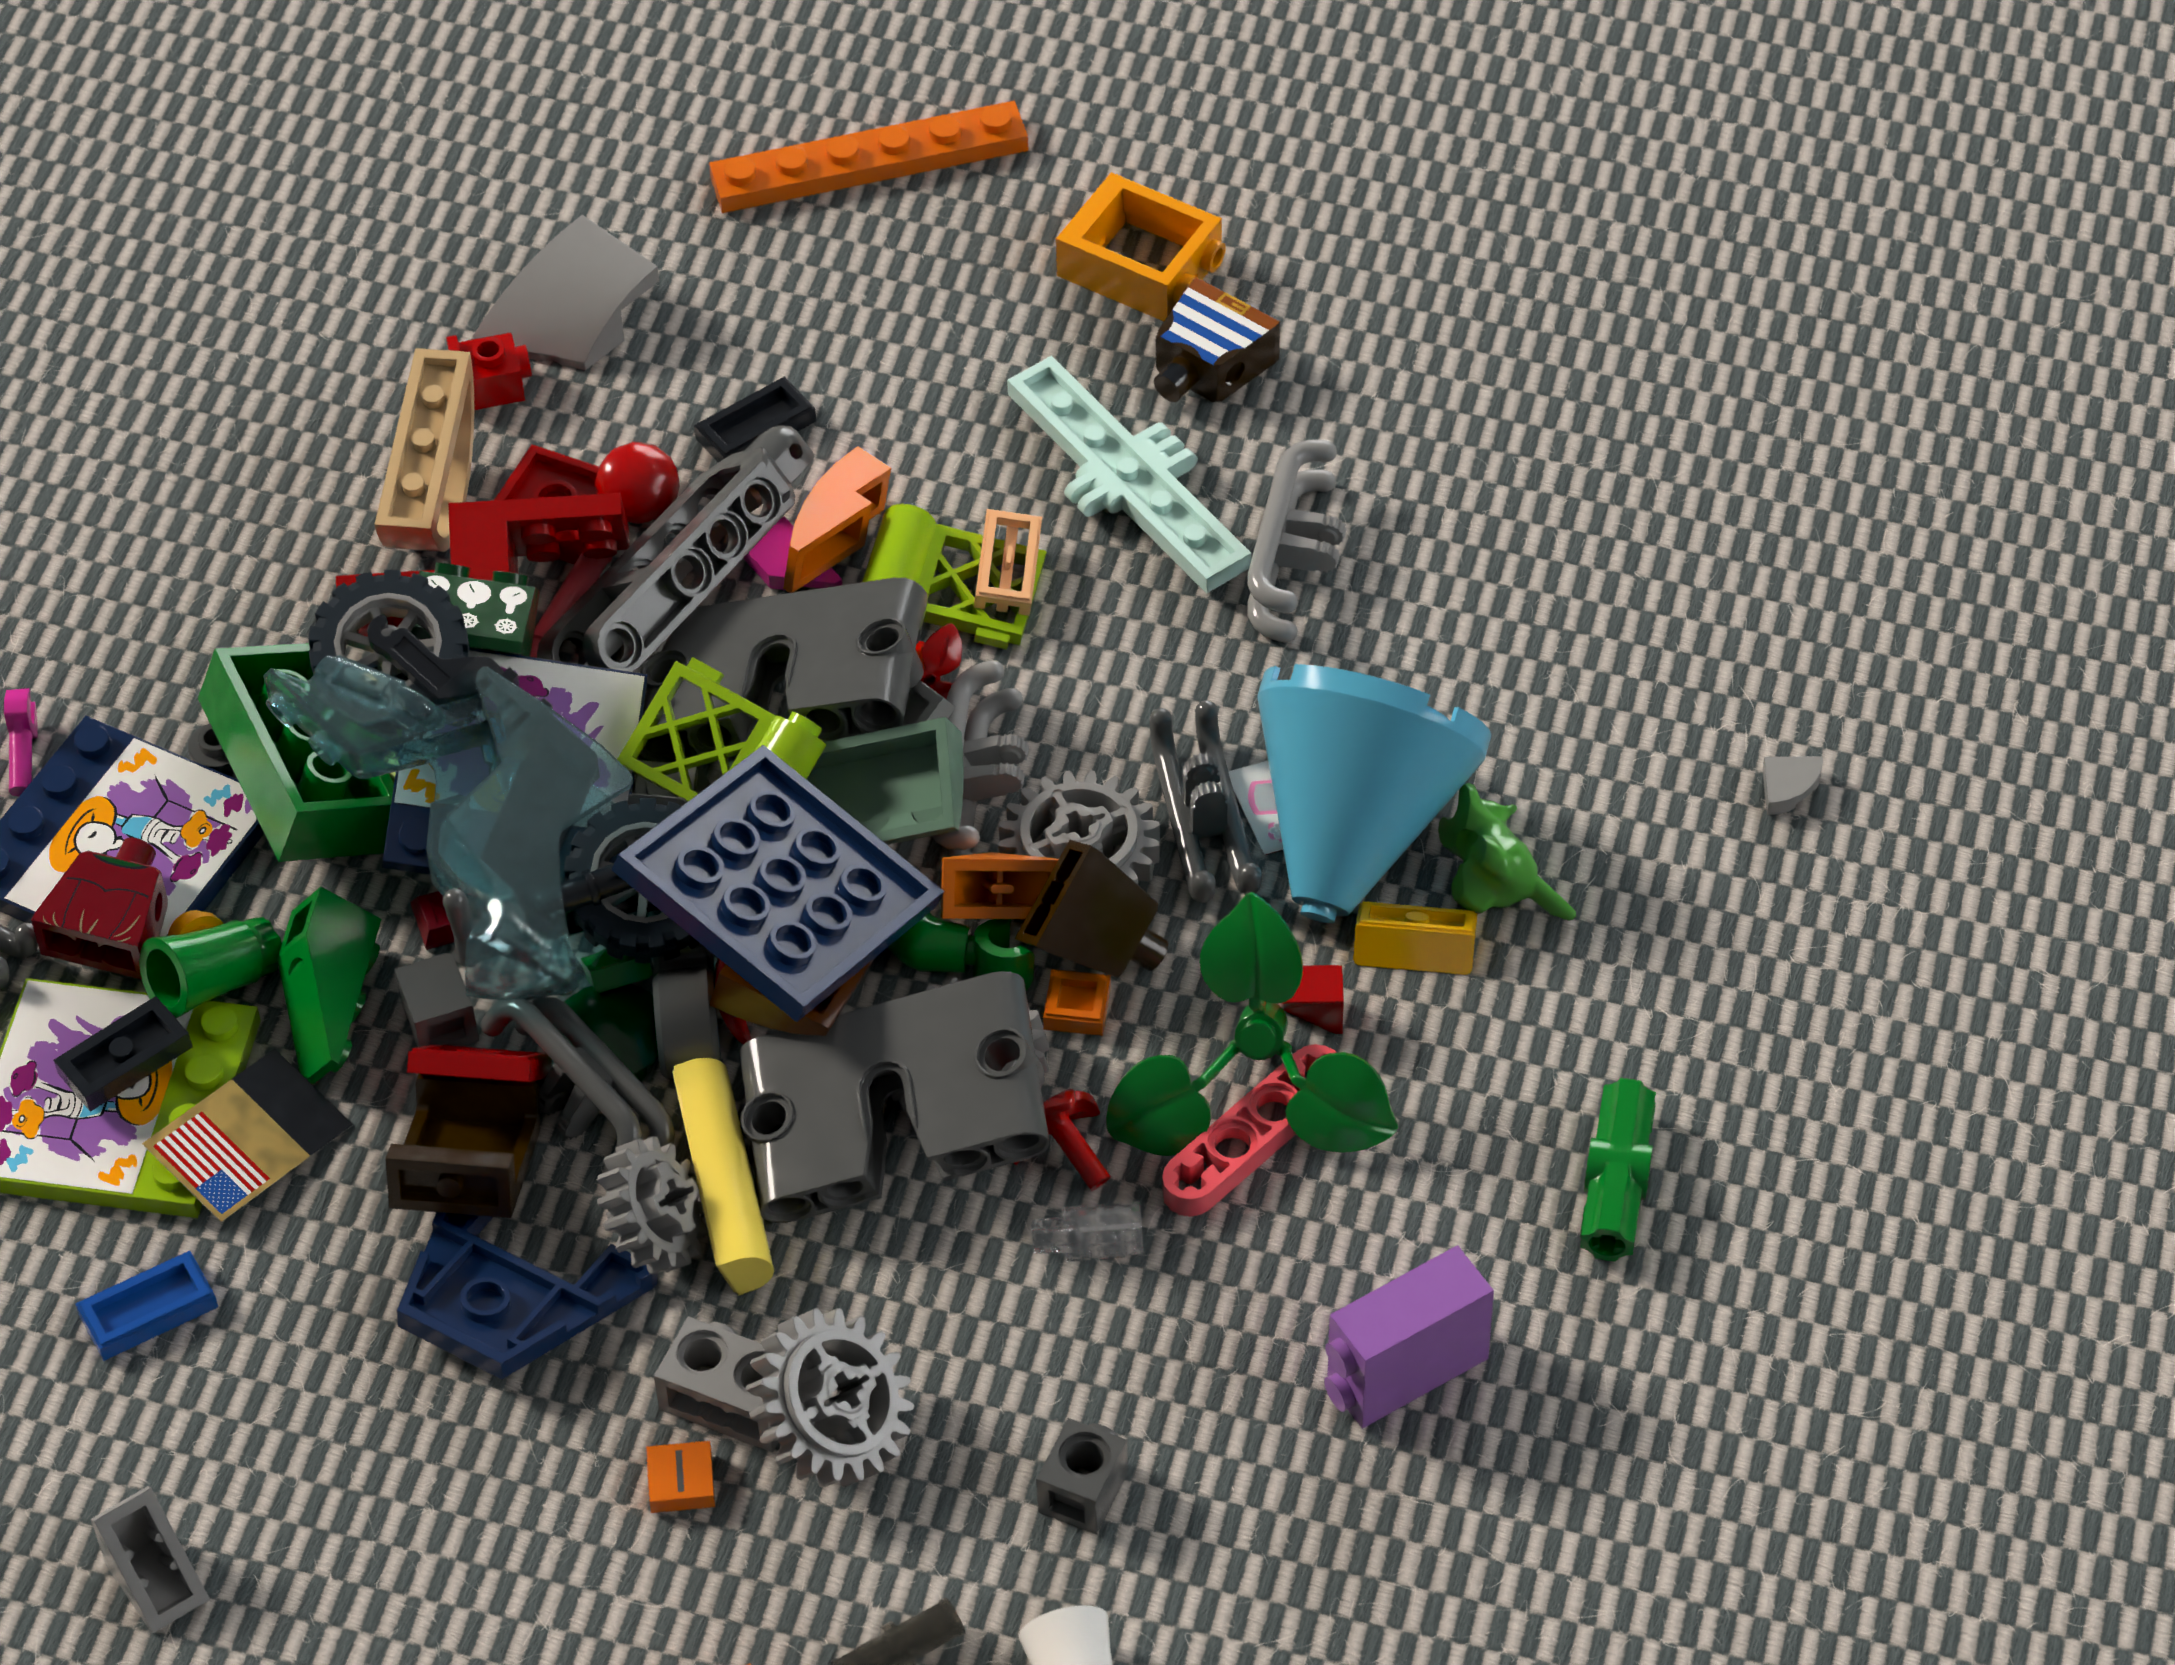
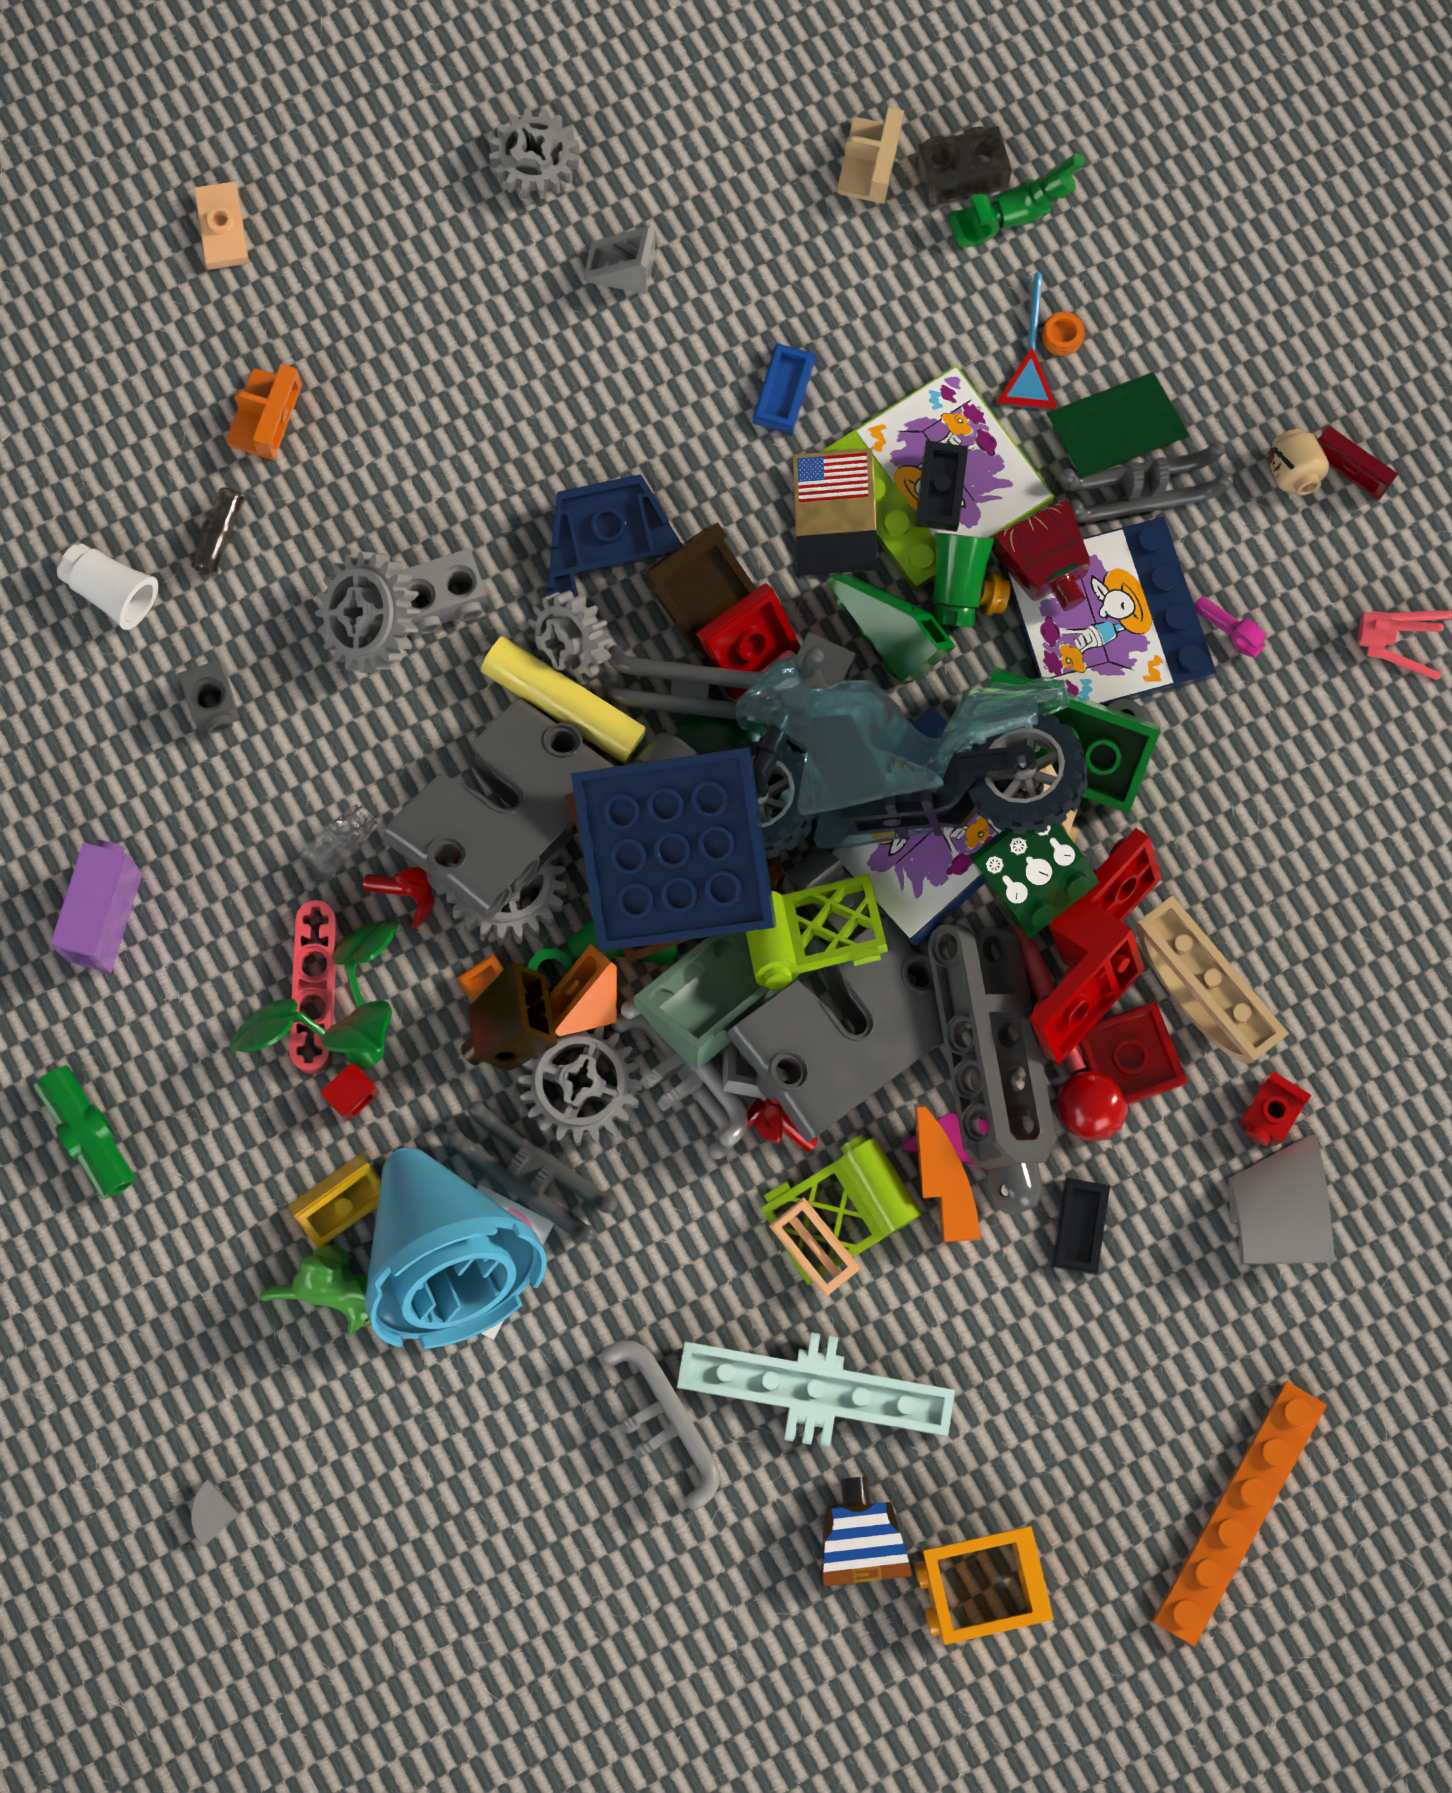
camera: 130 degrees right, 25 degrees up
(680, 1476) = (419, 530): orange tile -> none

